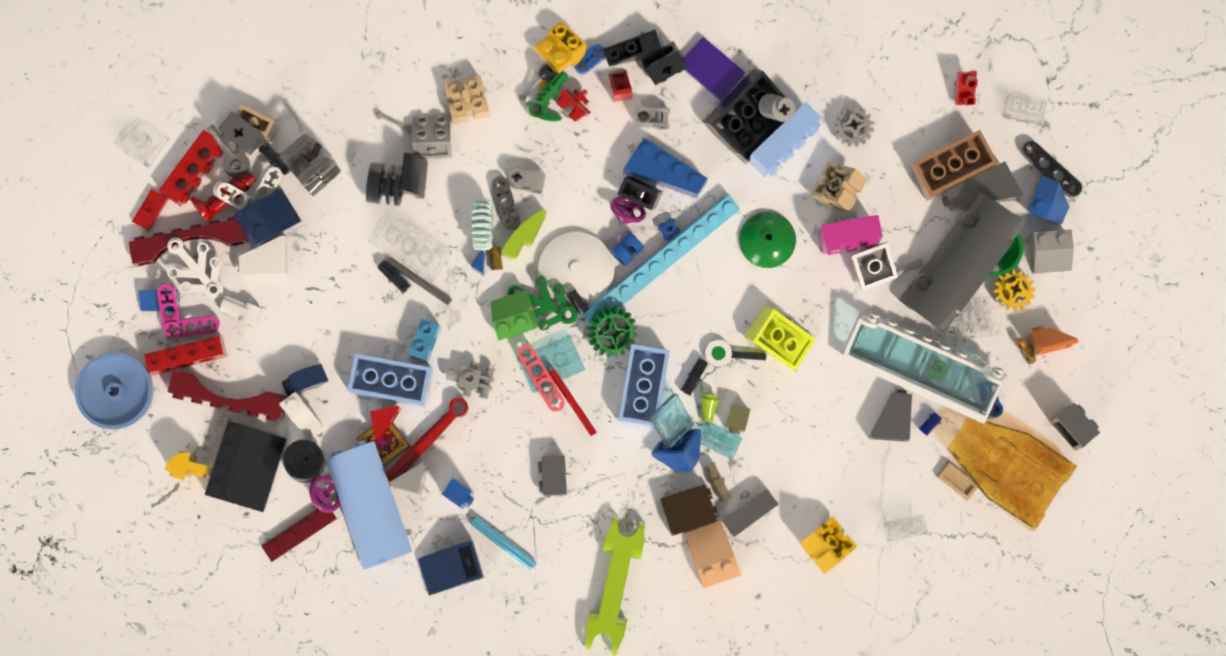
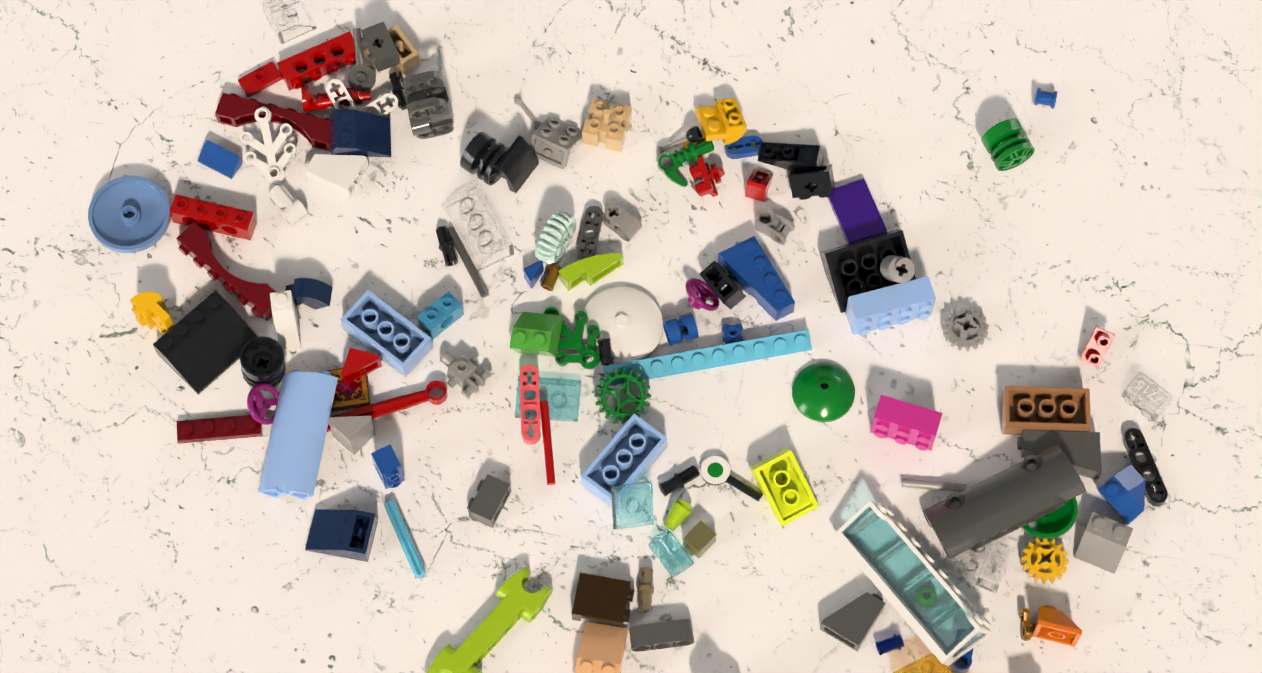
camera: 30 degrees right, 15 degrees down
(176, 320) = (224, 181): dark pink beam -> none
(683, 454) = (625, 543): blue slope -> none
(838, 186) = (919, 373): tan brick -> none
(873, 266) = (914, 464): light grey slope -> none

